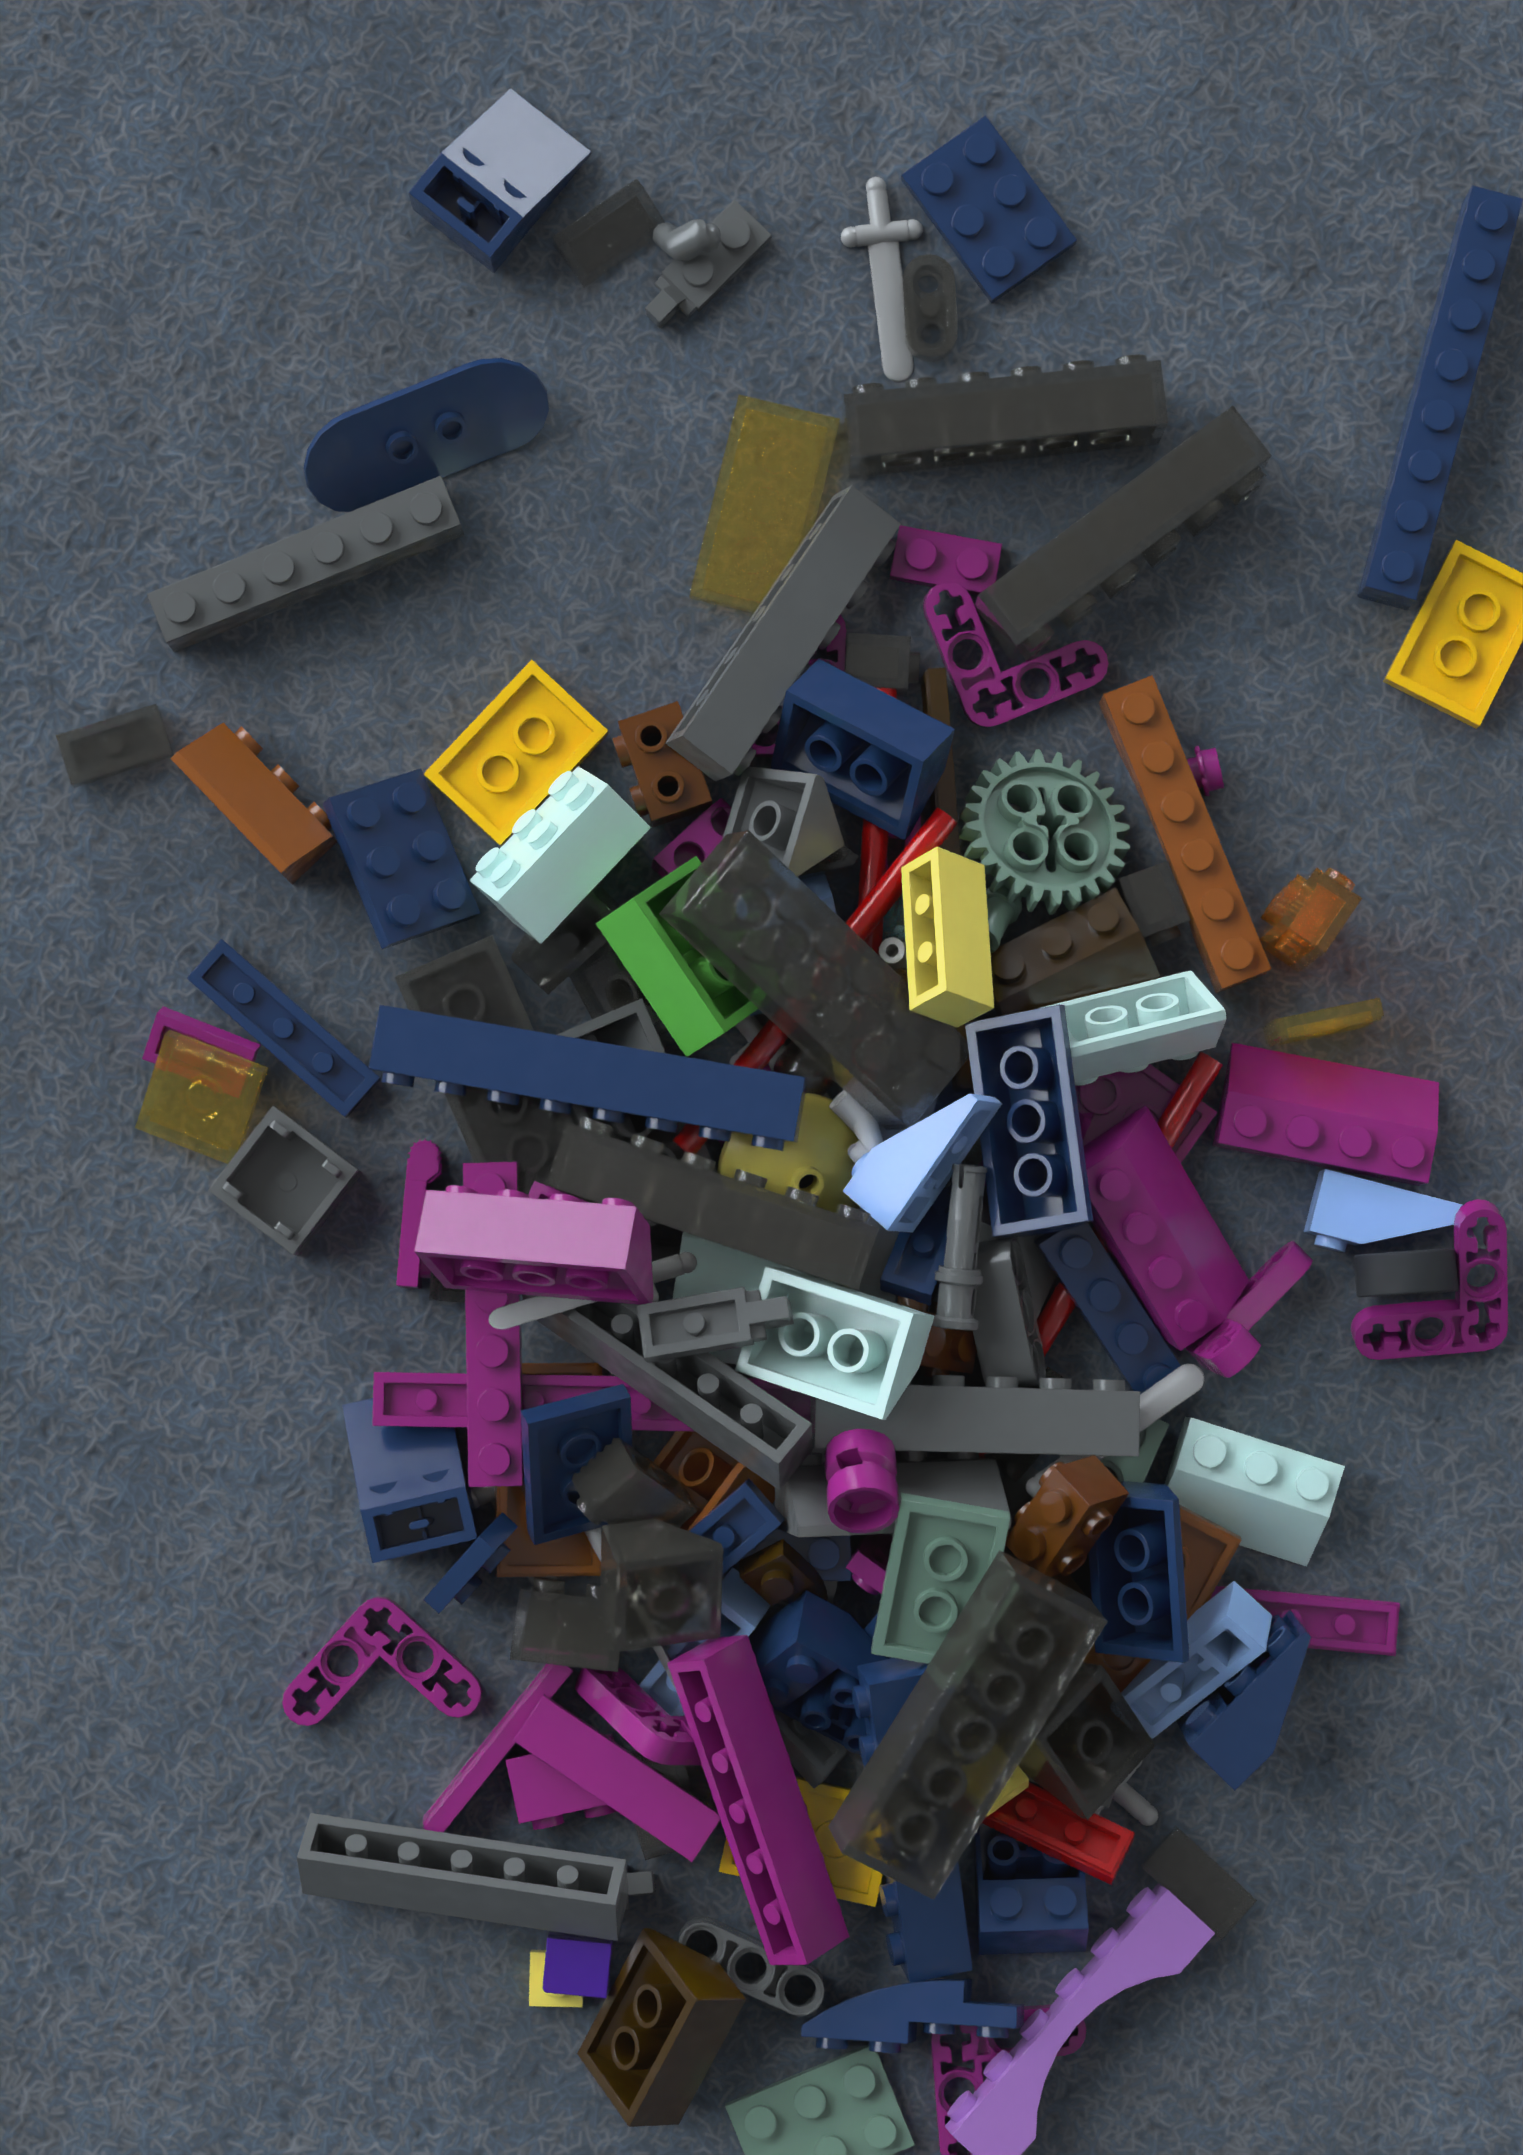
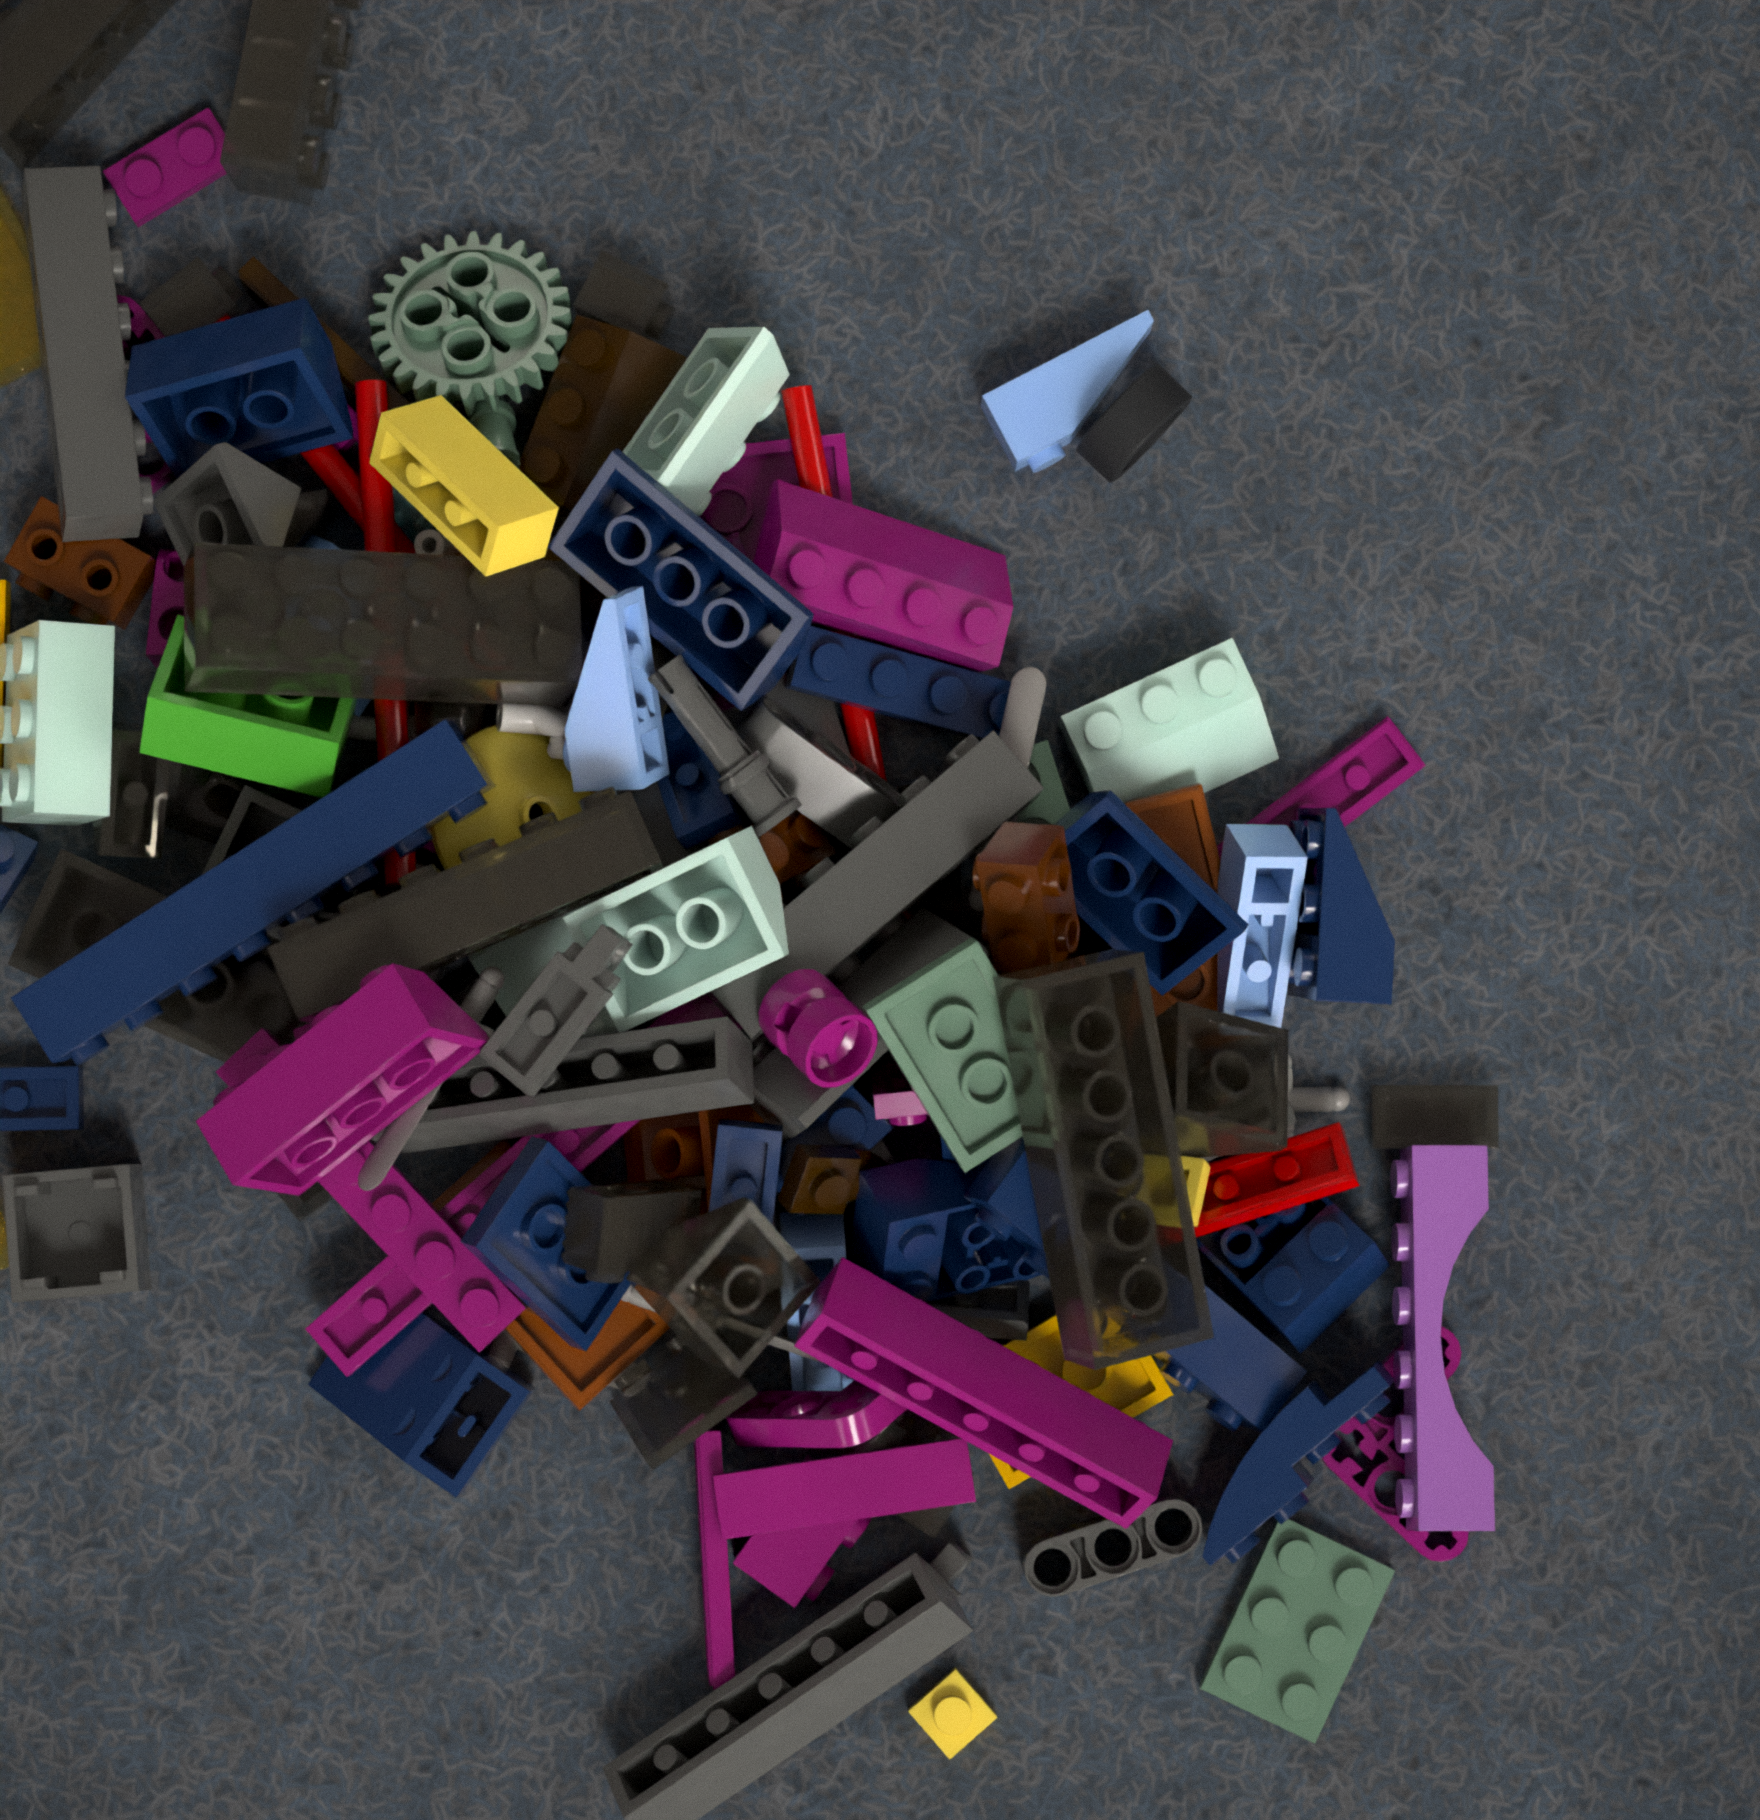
camera: 45 degrees left, 0 degrees up
(369, 1649) = (526, 1577): magenta beam -> none
(421, 1171) = (186, 1105): magenta hinge -> none
(485, 1552) = (547, 1397): dark blue plate -> none
(577, 1965) = (959, 1684): dark purple panel -> none
(660, 2029) = (1082, 1674): dark brown slope -> none
(988, 674) = (298, 231): magenta beam -> none
(1186, 833) = (565, 197): dark orange arch -> none
(1206, 769) = (565, 146): magenta plate -> none
(1230, 1344) = (1037, 615): magenta beam -> none
(1307, 917) = (764, 184): clear orange brick -> none
(1323, 1022) = (864, 269): clear yellow tile -> none
(1328, 1115) = (944, 350): magenta slope -> none
(1456, 1314) = (1210, 421): magenta beam -> none

